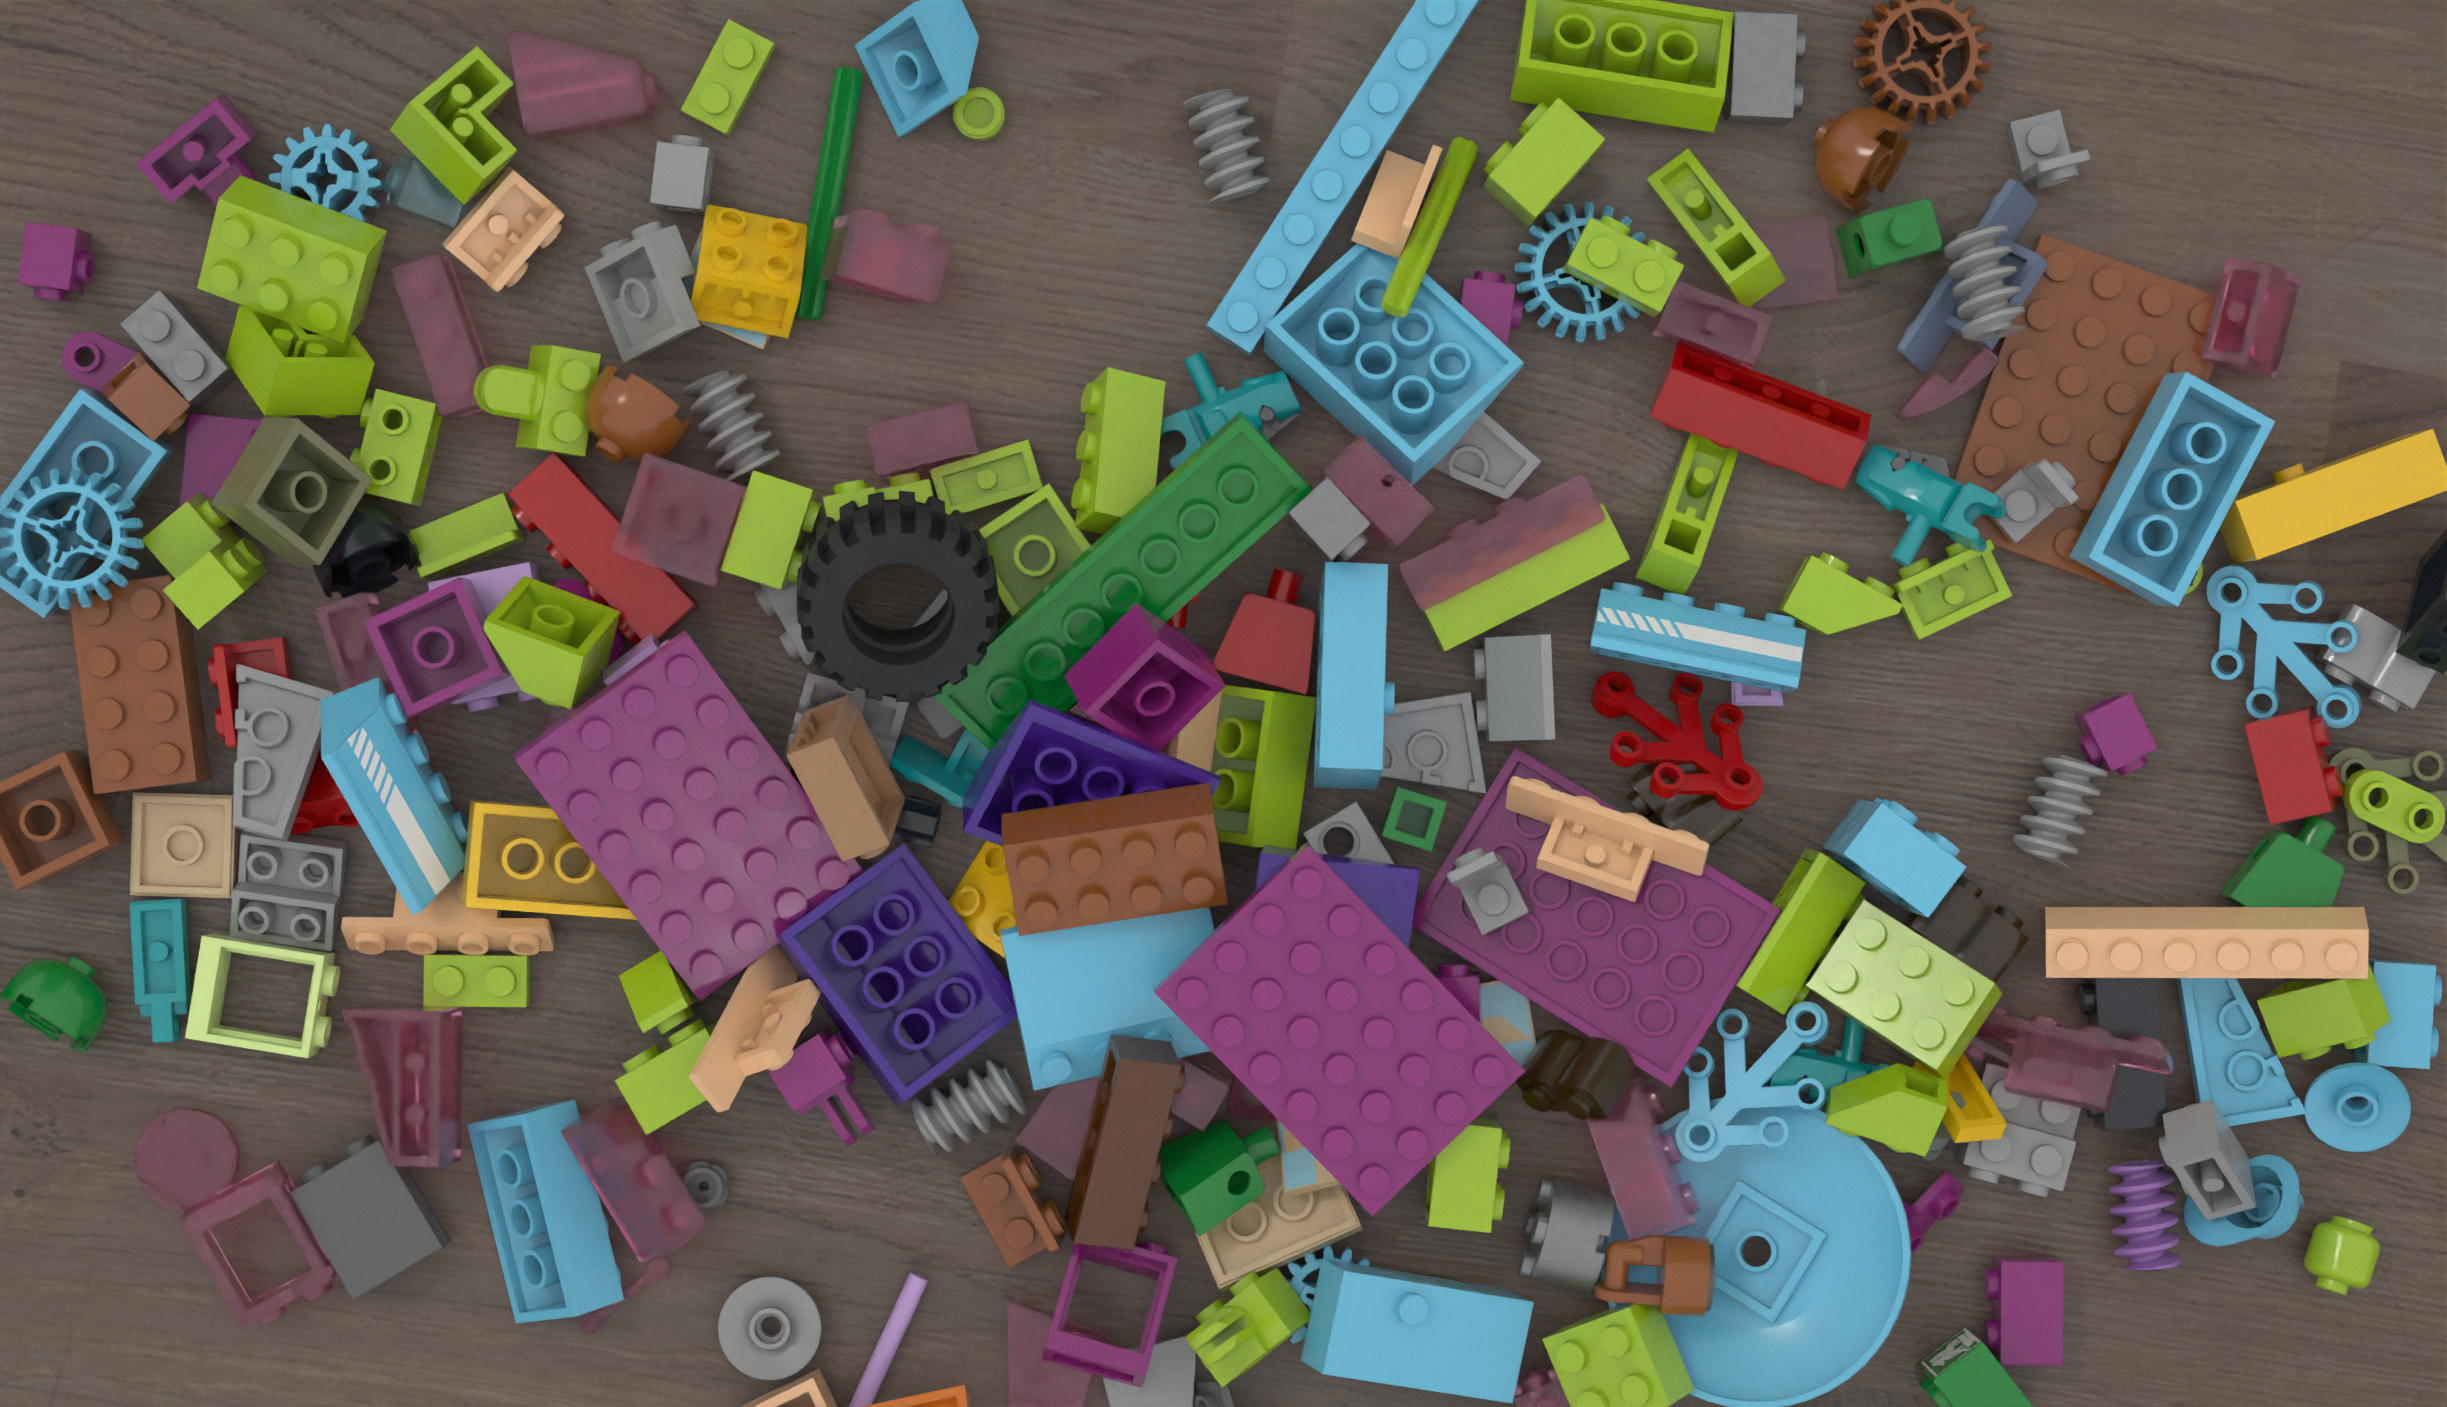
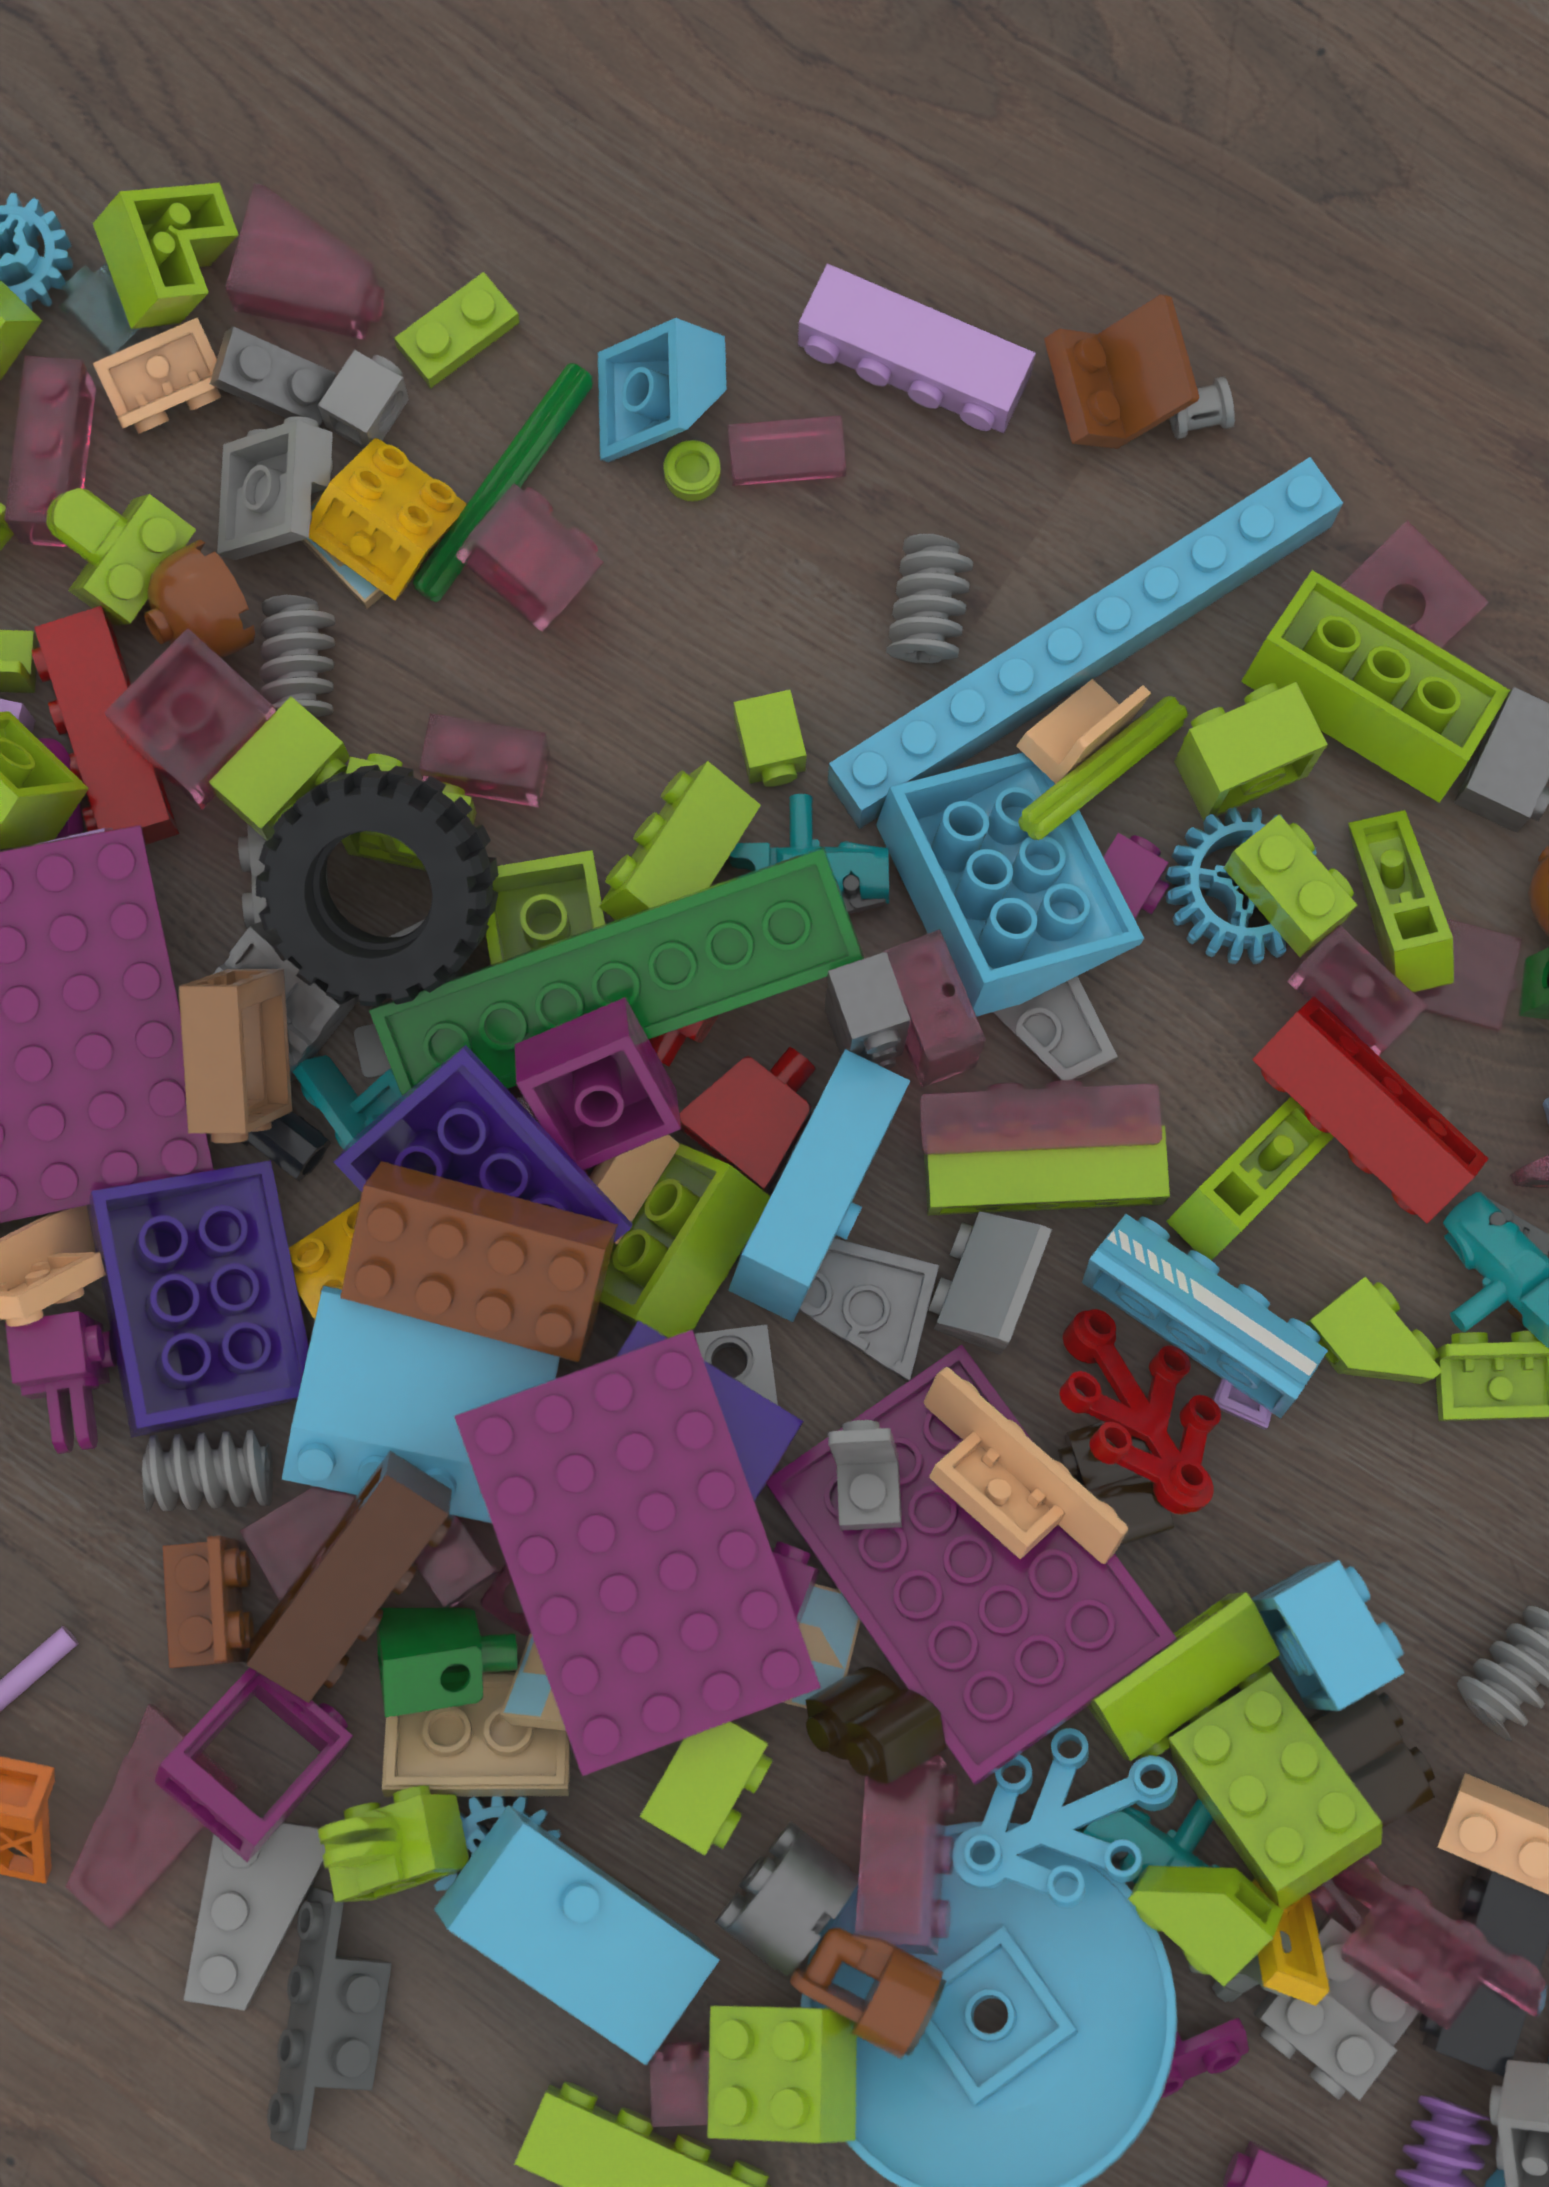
camera: 20 degrees right, 10 degrees down
(598, 193) = (270, 376): none -> flat silver plate
(987, 478) = (533, 827): lime plate -> none
(1050, 62) = (786, 450): none -> clear pink tile
(1147, 319) = (770, 738): none -> lime brick
(1413, 818) = (820, 1370): green brick -> none

